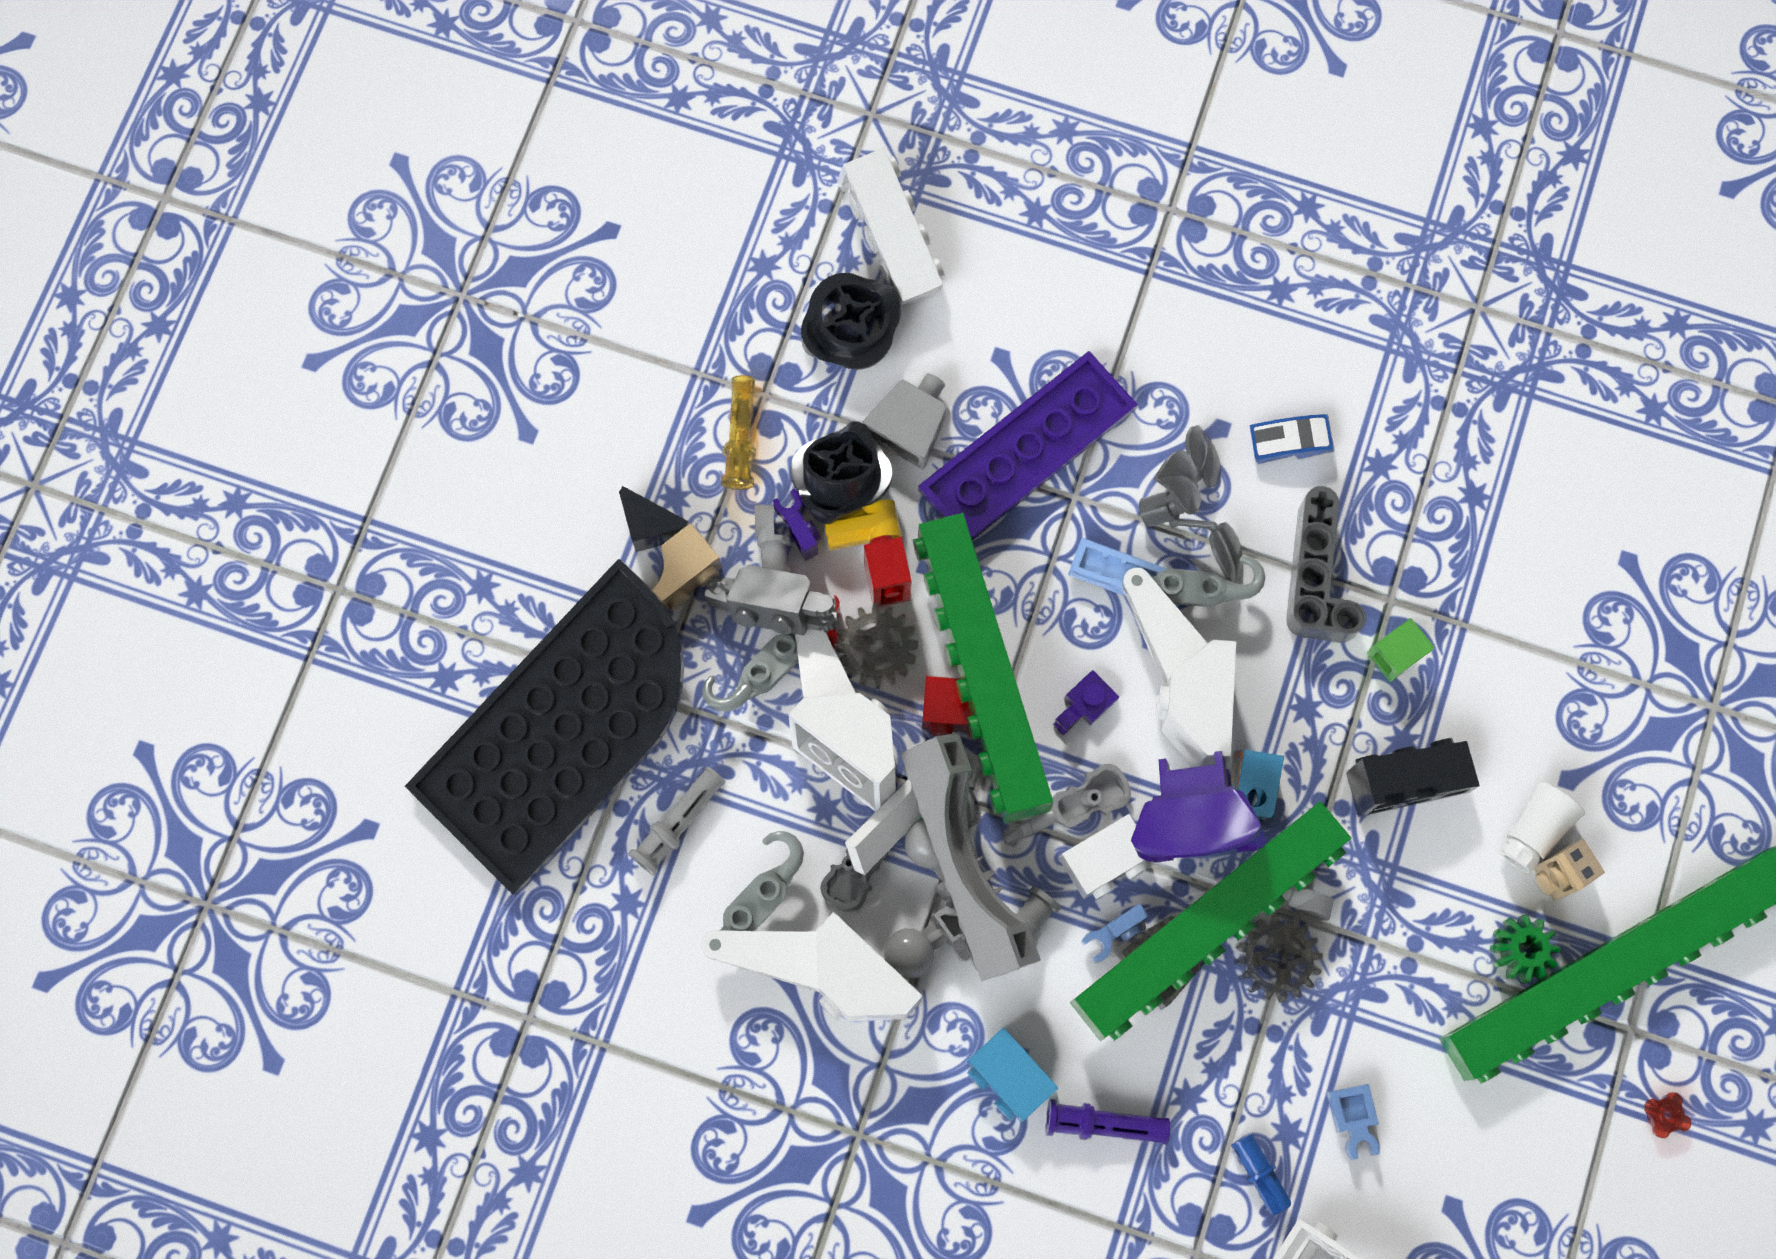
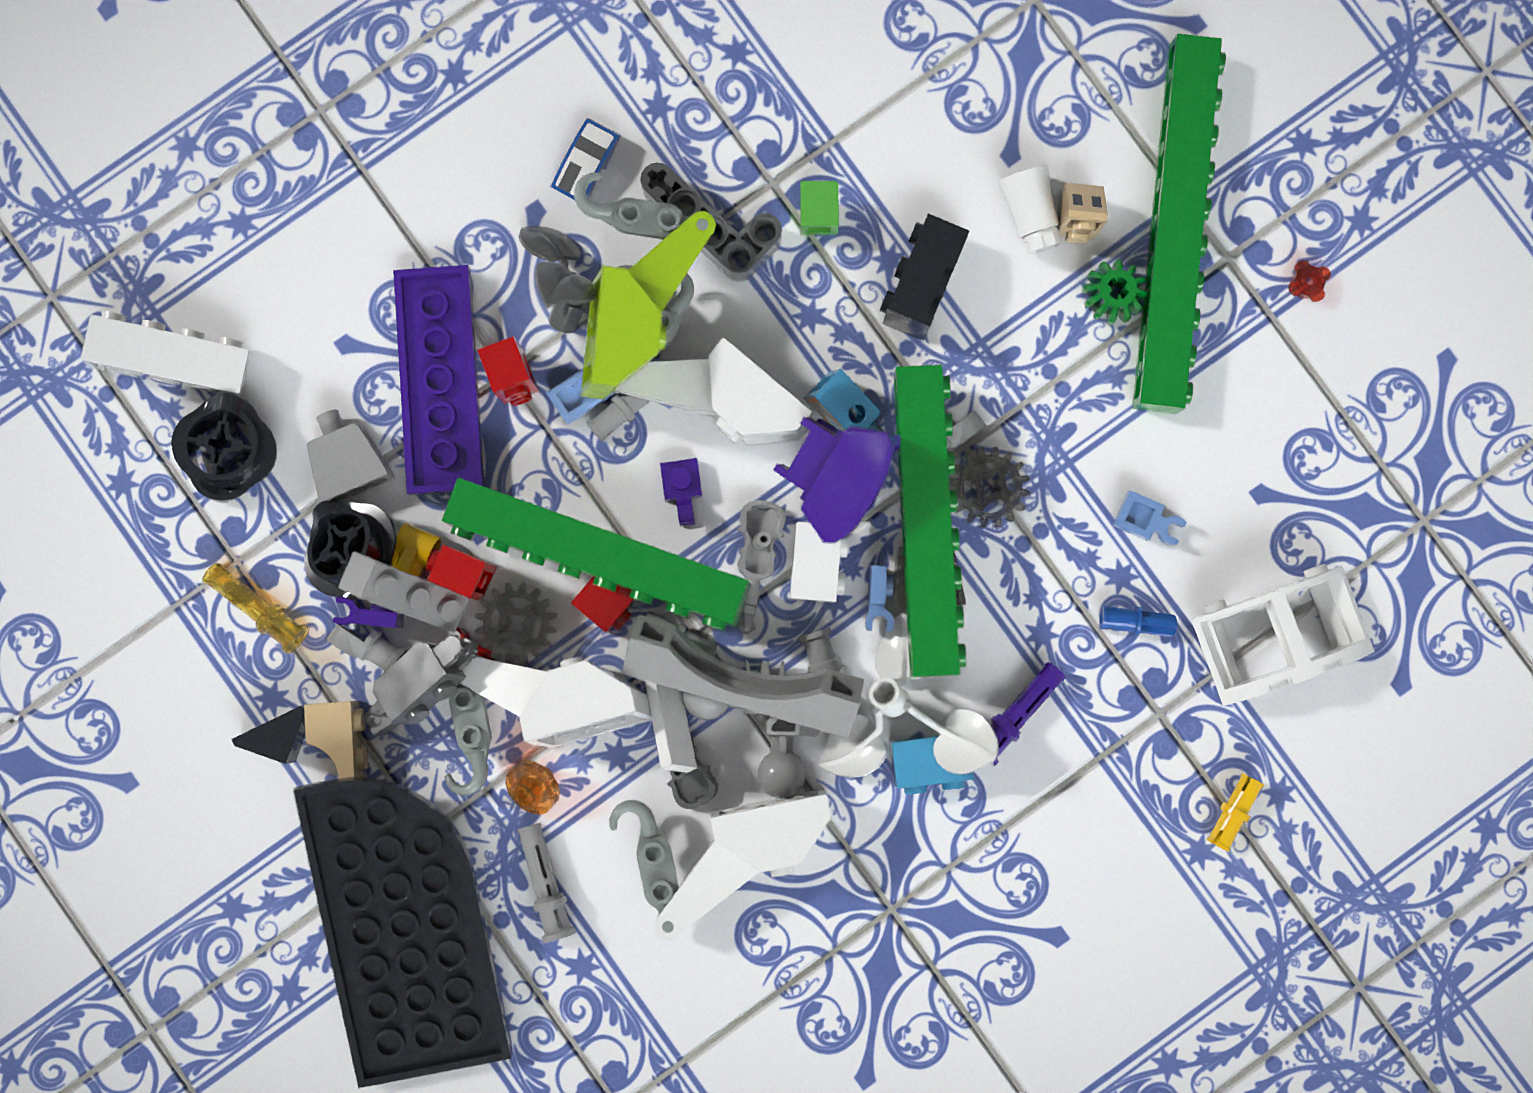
camera: 55 degrees left, 10 degrees up
(751, 753) = (532, 787): none -> clear orange plate
(839, 535) = (403, 592): none -> light grey arch
(1044, 1088) = (964, 742): none -> white plant
(1077, 495) = (508, 371): none -> red brick
(1105, 606) = (615, 415): none -> light grey pin
(1210, 546) = (629, 303): none -> lime slope

